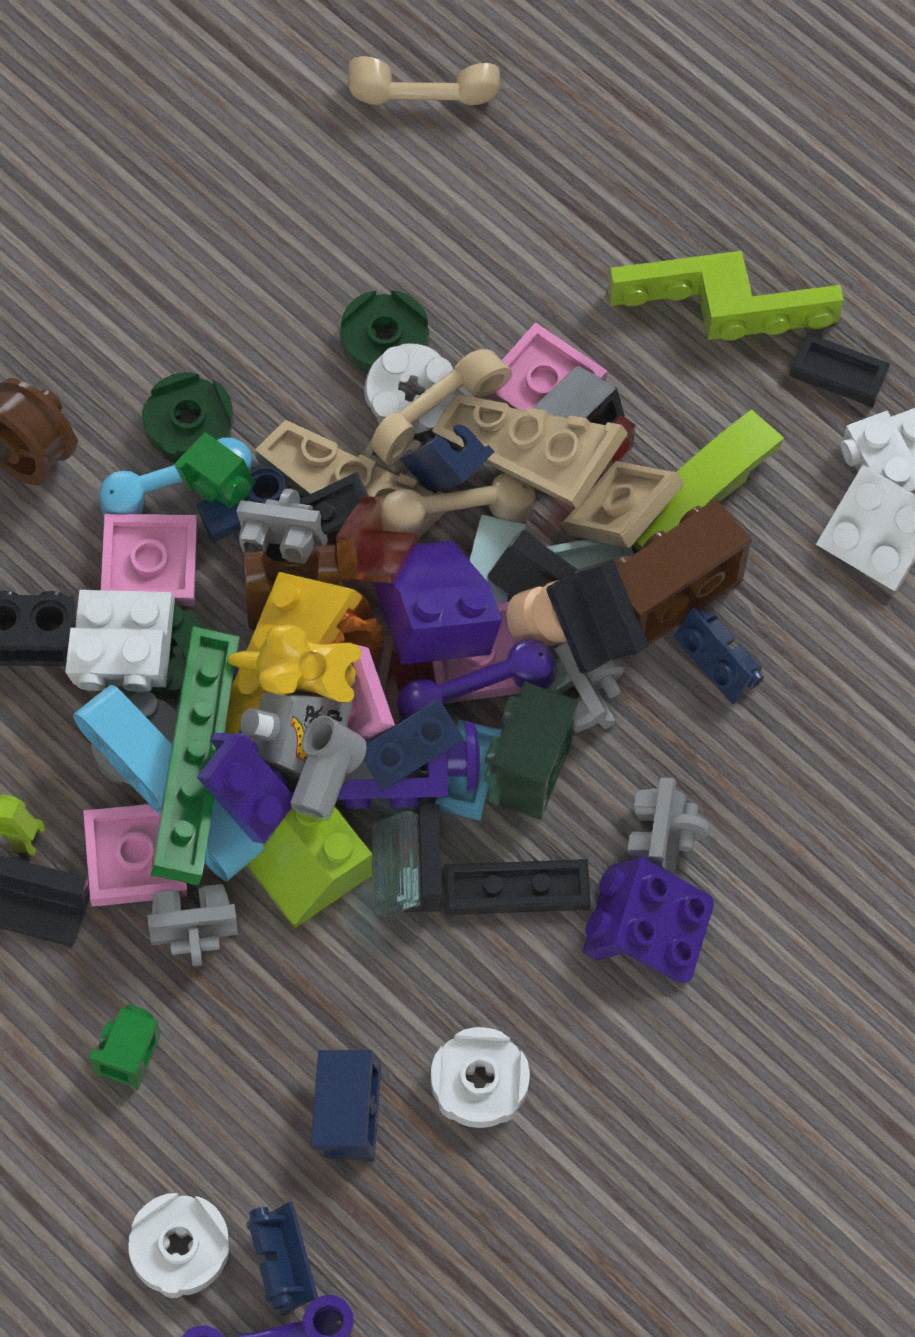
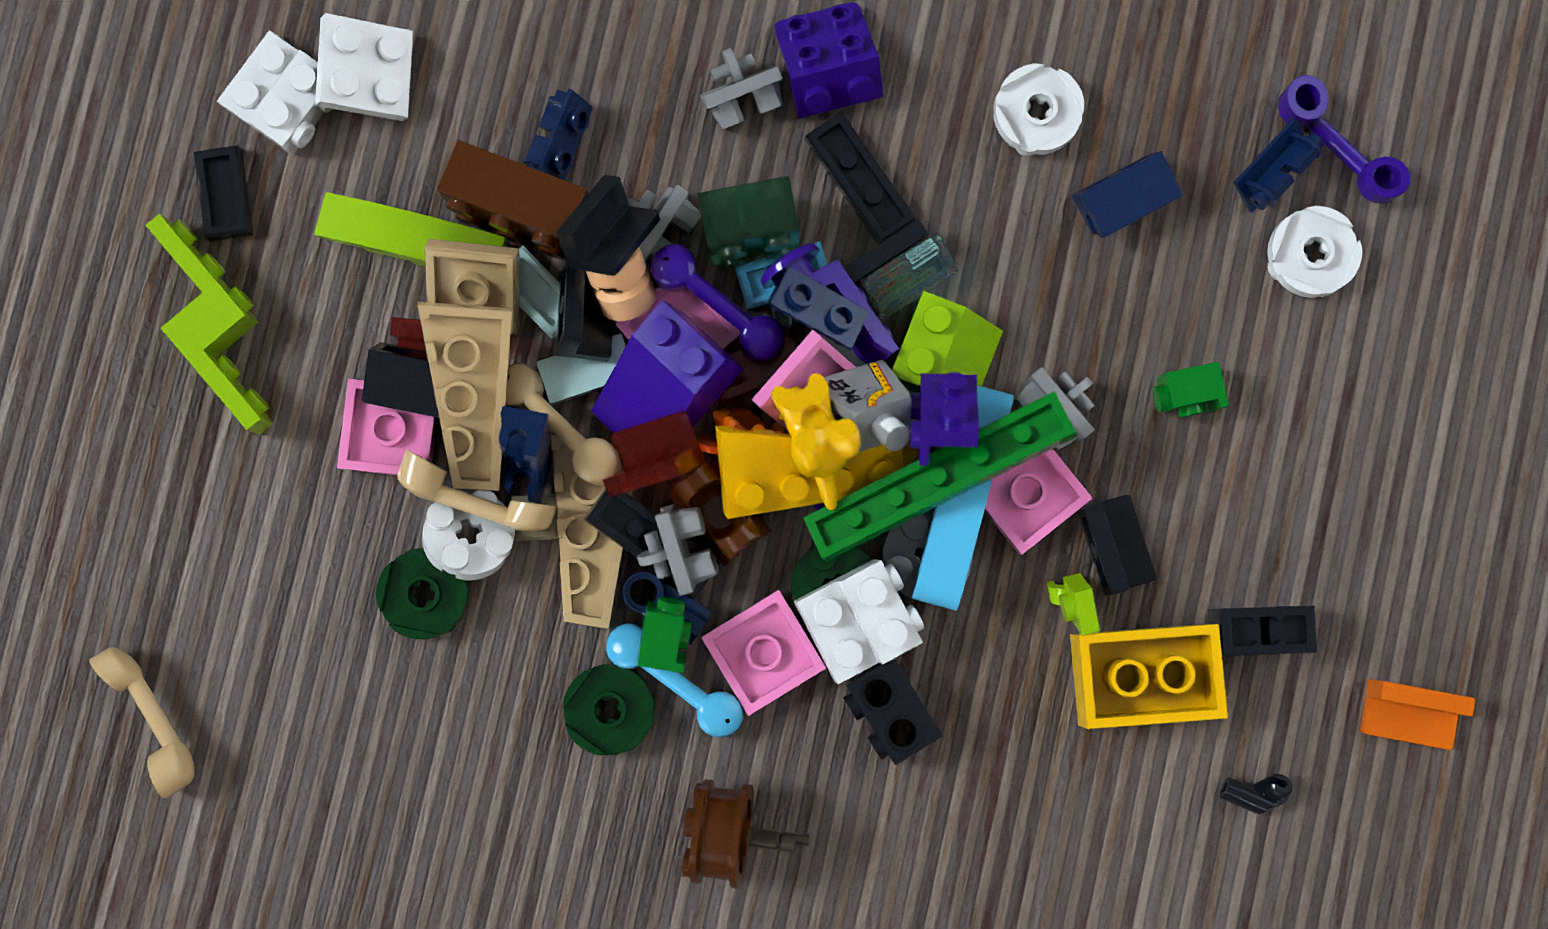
camera: 115 degrees left, 20 degrees up
(332, 754) = (886, 360): light grey piece -> none

